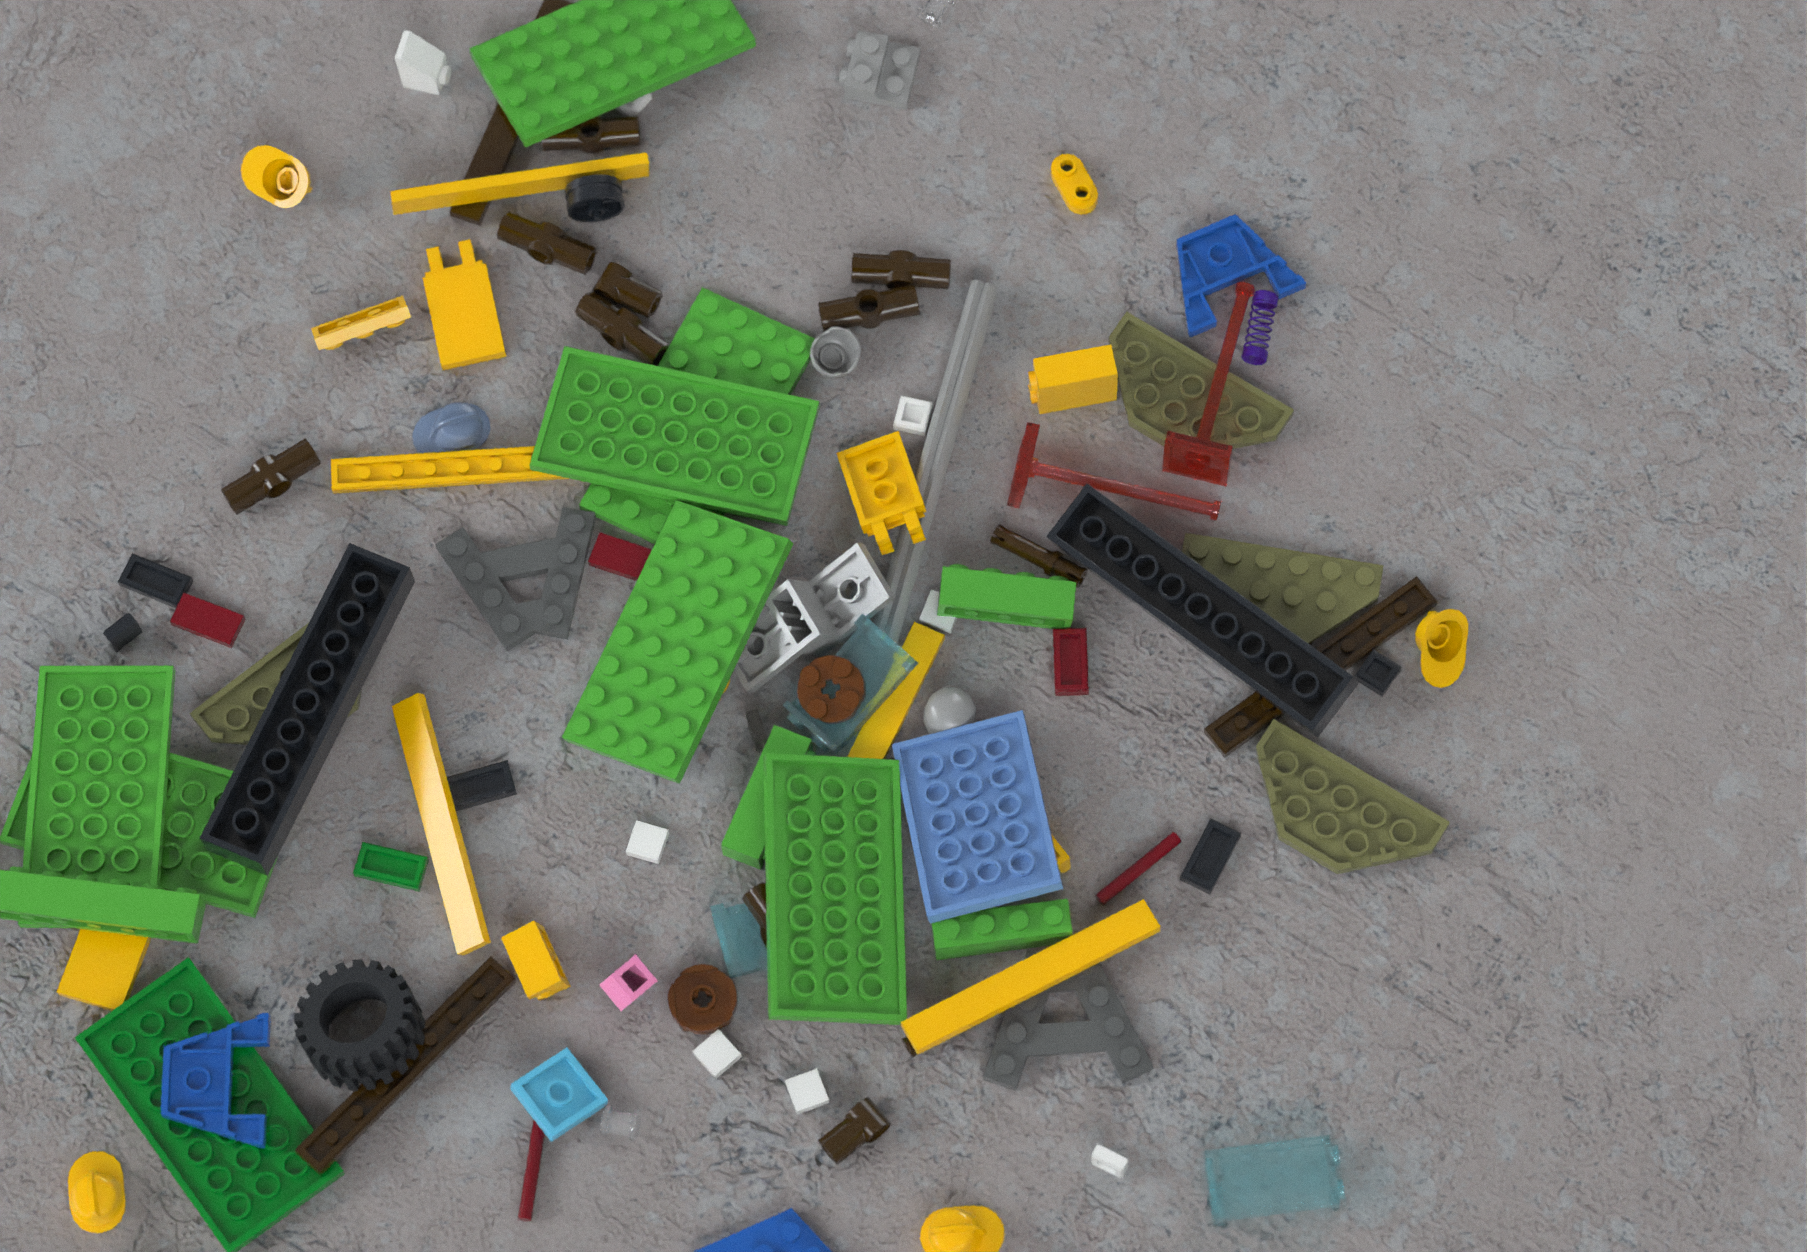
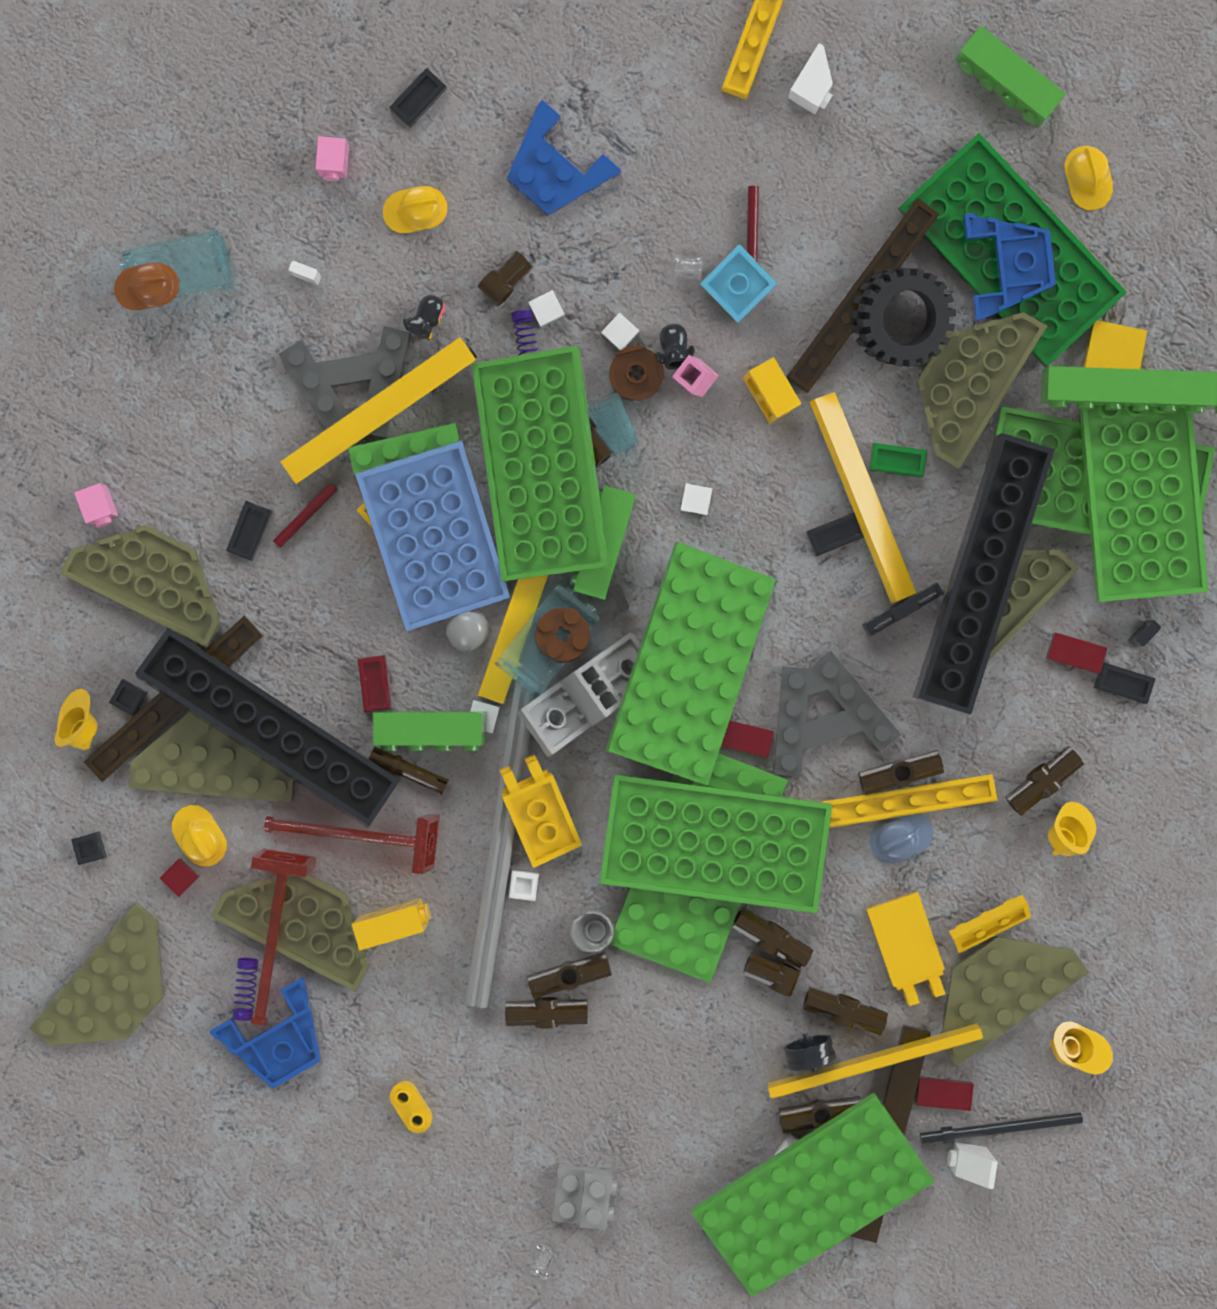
camera: 170 degrees right, 20 degrees up
(246, 416) = (1072, 830): none -> yellow piece
(281, 946) = (971, 379): none -> olive plate
(353, 256) = (1003, 986): none -> olive plate
(420, 503) = (917, 768): none -> dark brown piece
(420, 681) = (903, 609): none -> black piece
(443, 146) = (944, 1093): none -> dark red tile
(445, 101) = (949, 1135): none -> black bar
(650, 1028) = (674, 345): none -> black animal
(840, 1082) = (519, 317): none -> dark purple piece
(956, 1093) = (428, 316): none -> black animal
(1303, 507) = (199, 835): none -> yellow piece
(1311, 1155) = (146, 286): none -> dark orange piece
(1330, 460) = (179, 877): none -> dark red tile
(1398, 900) = (96, 505): none -> bright pink brick
(1424, 342) = (110, 989): none -> olive plate
(1439, 503) = (88, 848): none -> black tile

